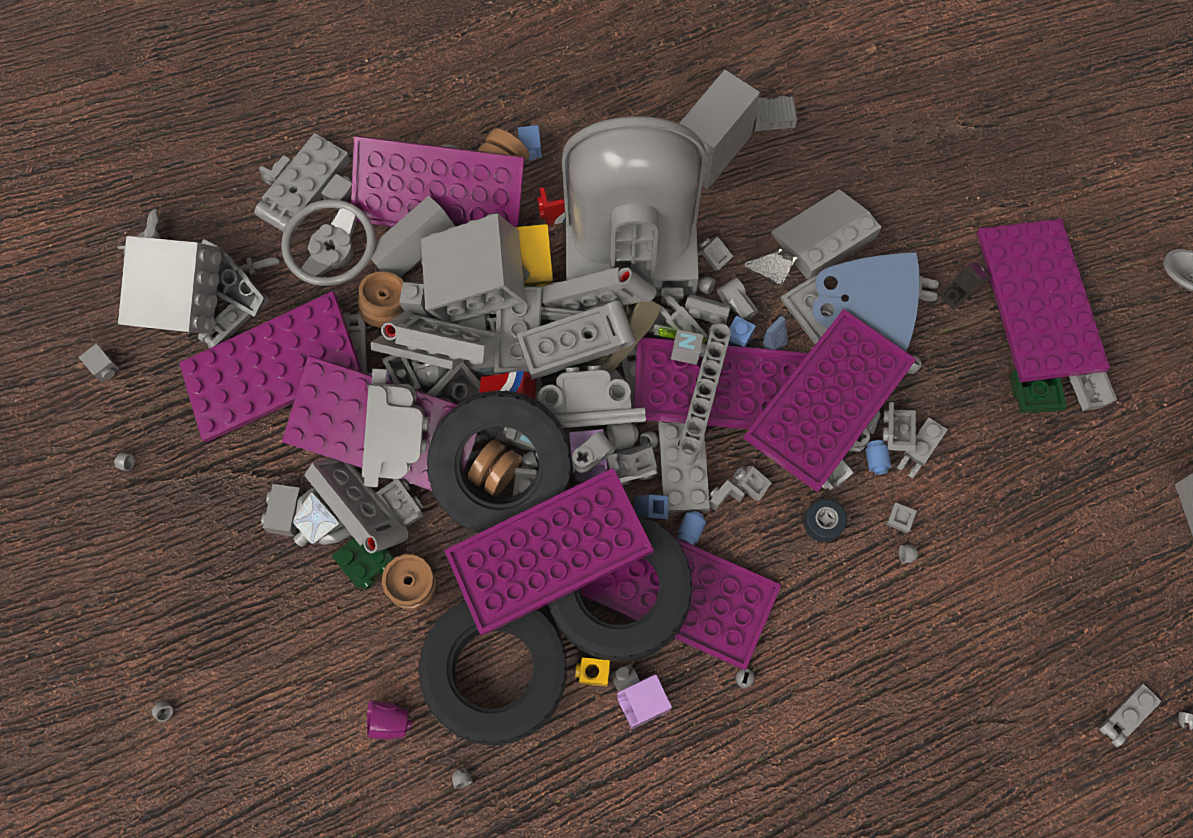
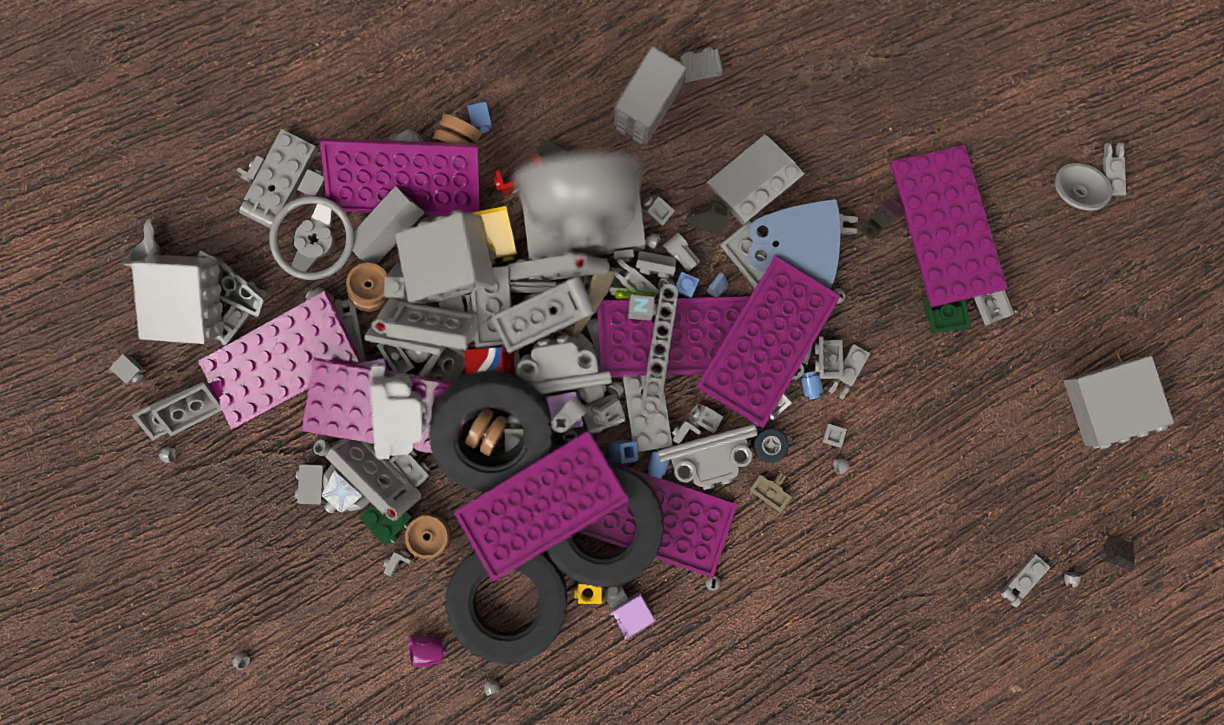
camera: 10 degrees left, 15 degrees up
(145, 412) = (178, 411): none -> light grey slope
(251, 267) = (246, 263): light grey piece -> none
(299, 470) = (321, 448): none -> light grey hinge
(364, 610) = (392, 562): none -> light grey bracket
(754, 526) = (711, 457): none -> light grey brick
(822, 575) = (771, 491): none -> dark tan plate

